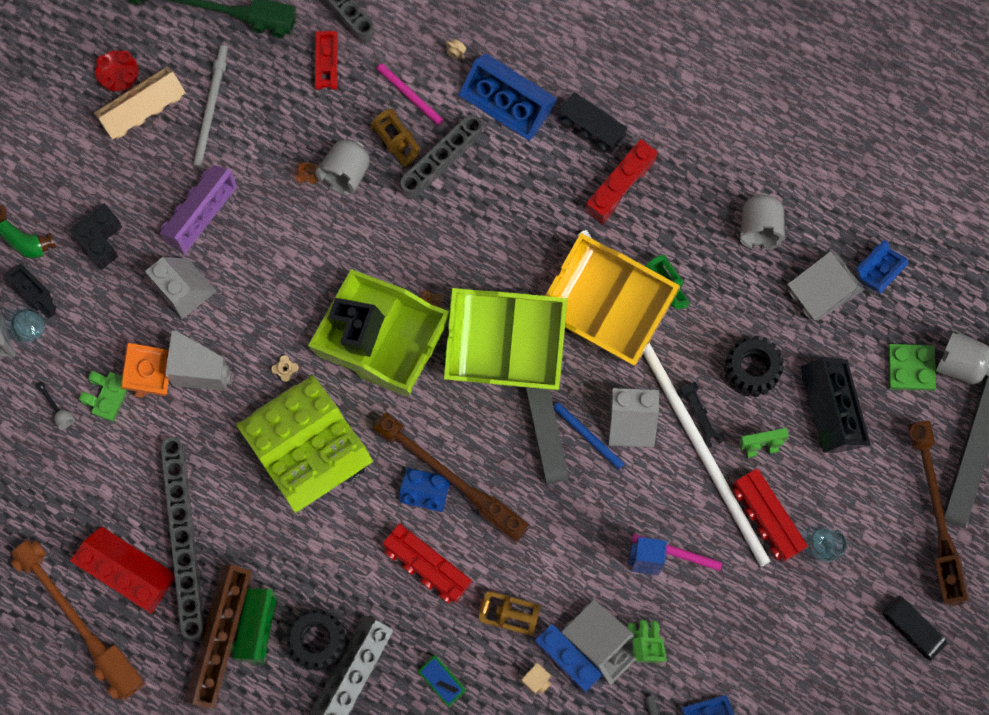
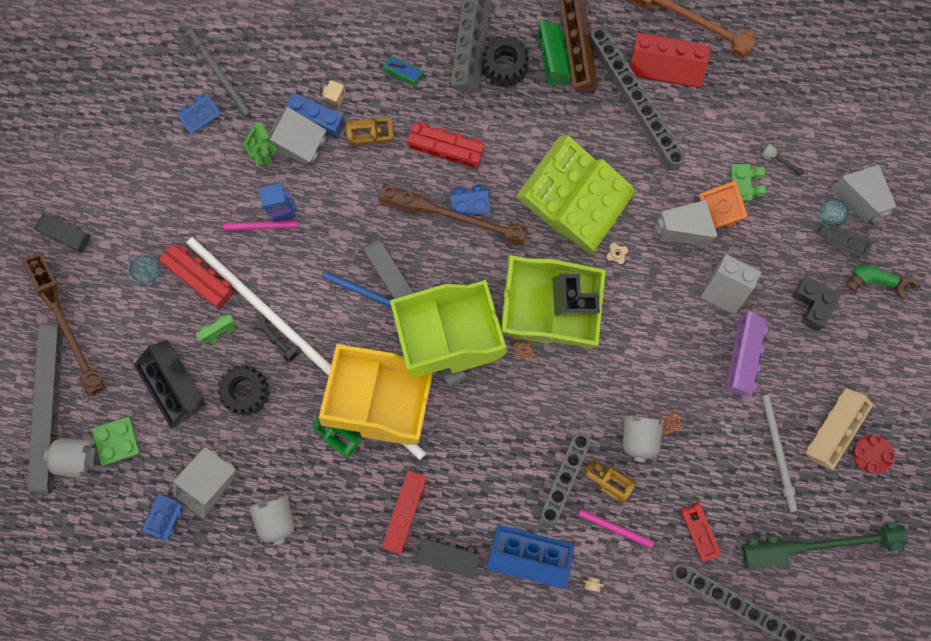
camera: 165 degrees right, 5 degrees up
(633, 417) = (326, 312): light grey slope -> none

